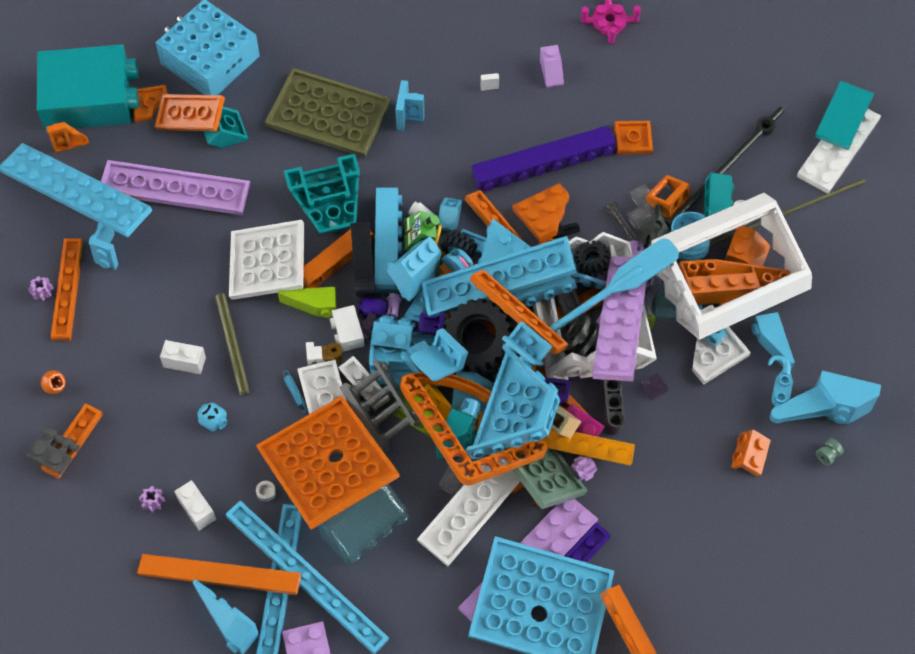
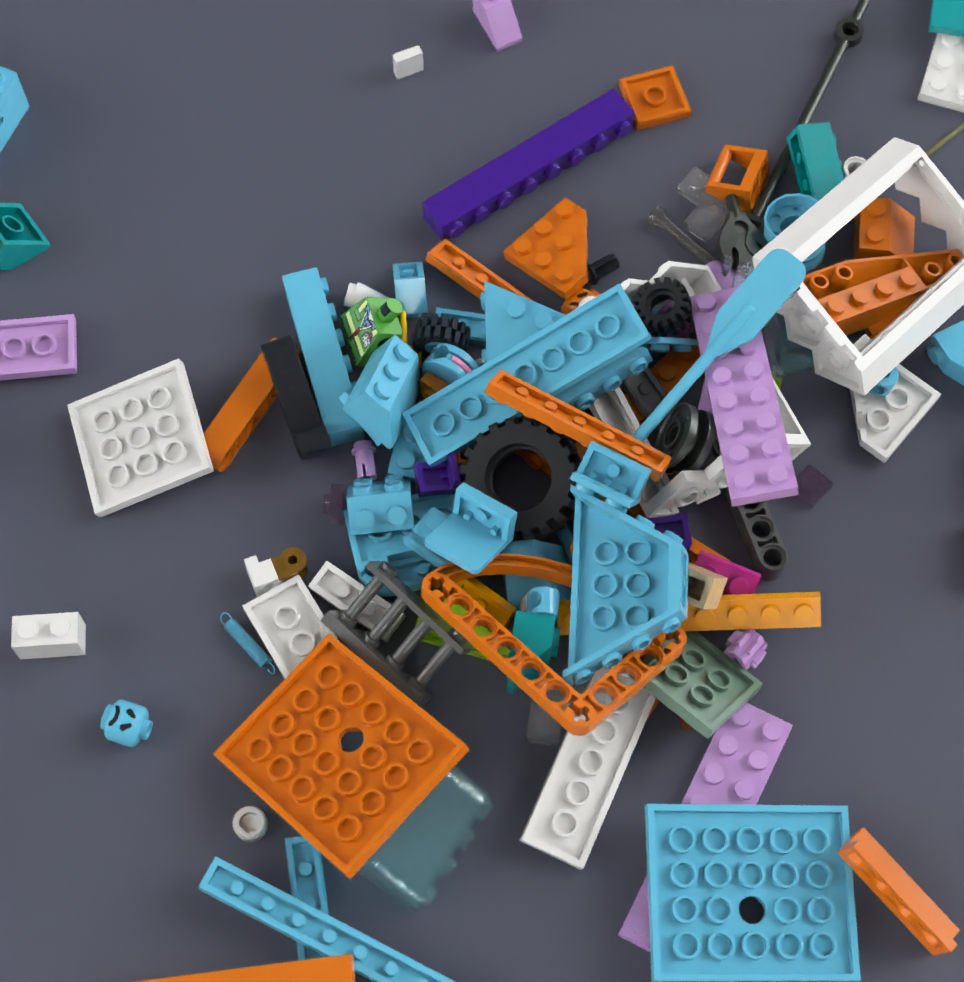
camera: 15 degrees left, 5 degrees up
(150, 504) = (63, 900): lavender gear -> none
(195, 505) = (141, 882): white brick -> none
(232, 344) = (123, 592): olive axle -> none
(311, 300) = (235, 486): lime slope -> none
(327, 193) = (206, 304): teal wedge -> none
(328, 112) = (167, 171): olive plate -> none
(348, 328) = (303, 517): white brick -> none
(372, 305) = (332, 470): dark purple brick -> none
(409, 106) = (295, 130): medium azure bracket -> none
(589, 544) = (789, 771): dark purple tile -> none

